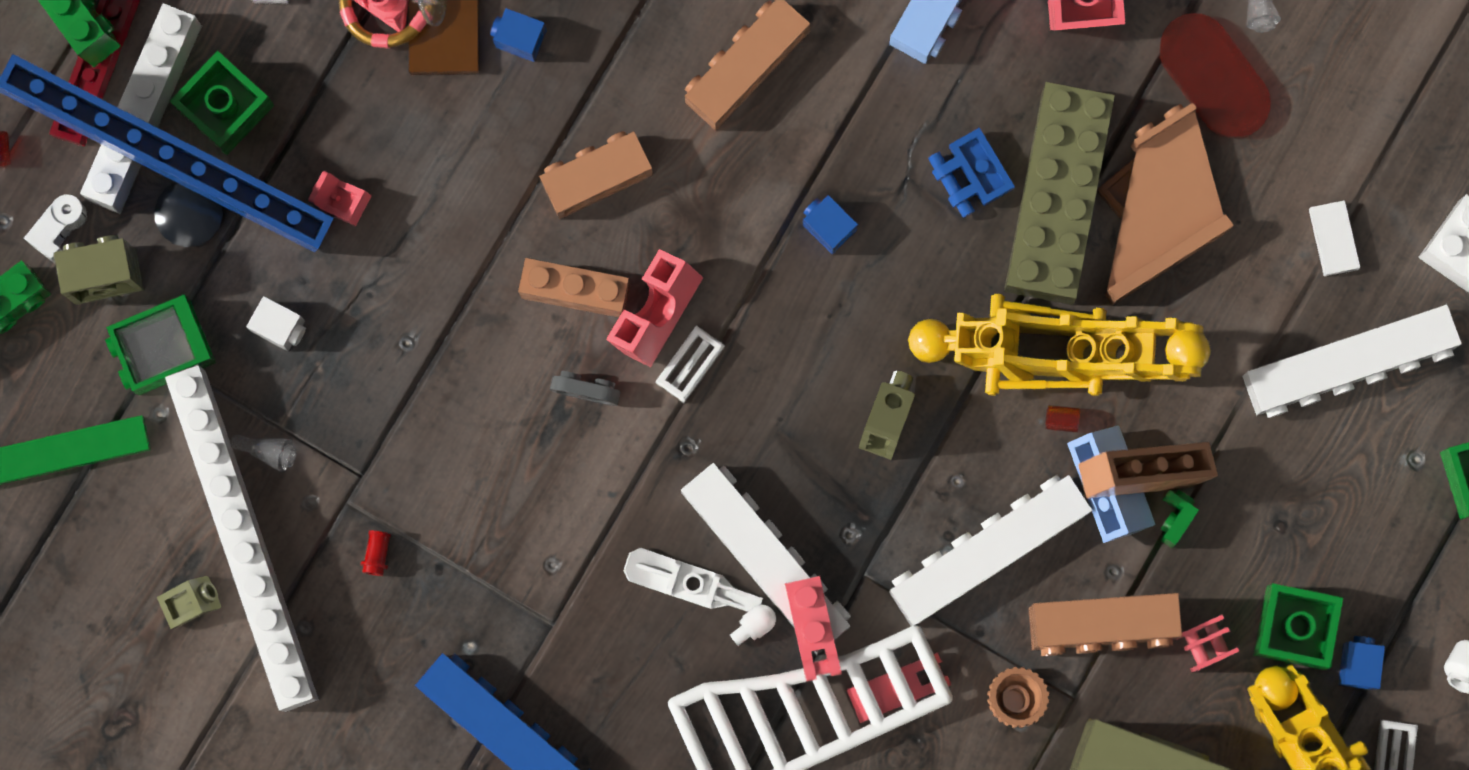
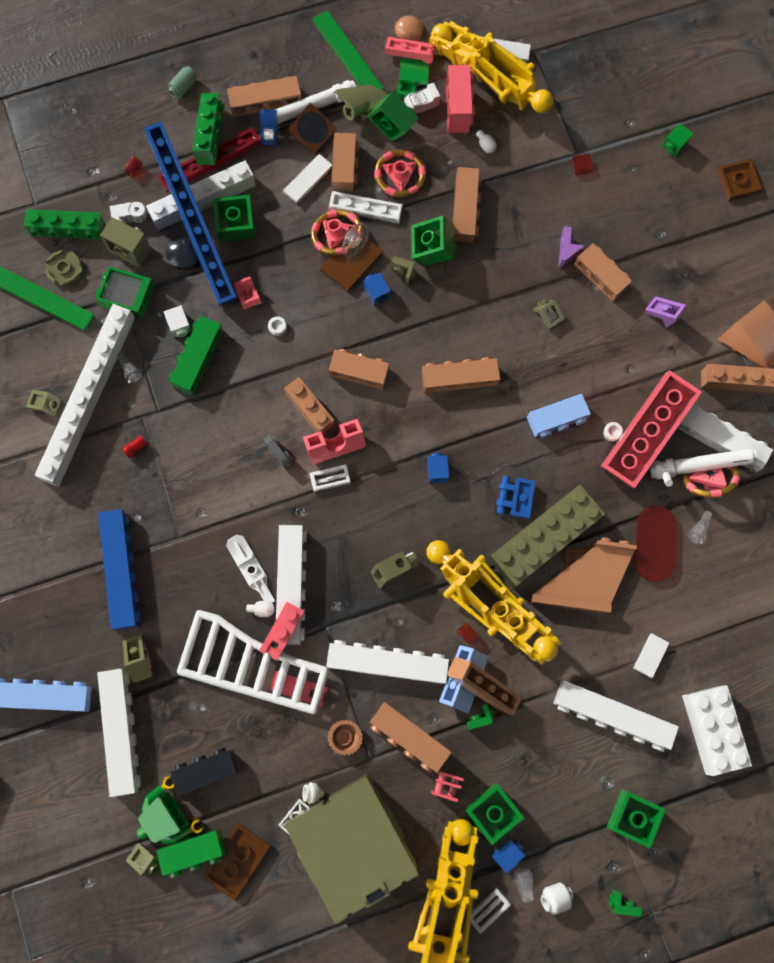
camera: 30 degrees right, 5 degrees down
(35, 385) = (63, 268): none -> olive tile
(346, 349) = (196, 355): none -> green brick
(423, 209) = (277, 326): none -> white tile
(1412, 682) = (524, 882): none -> clear cone

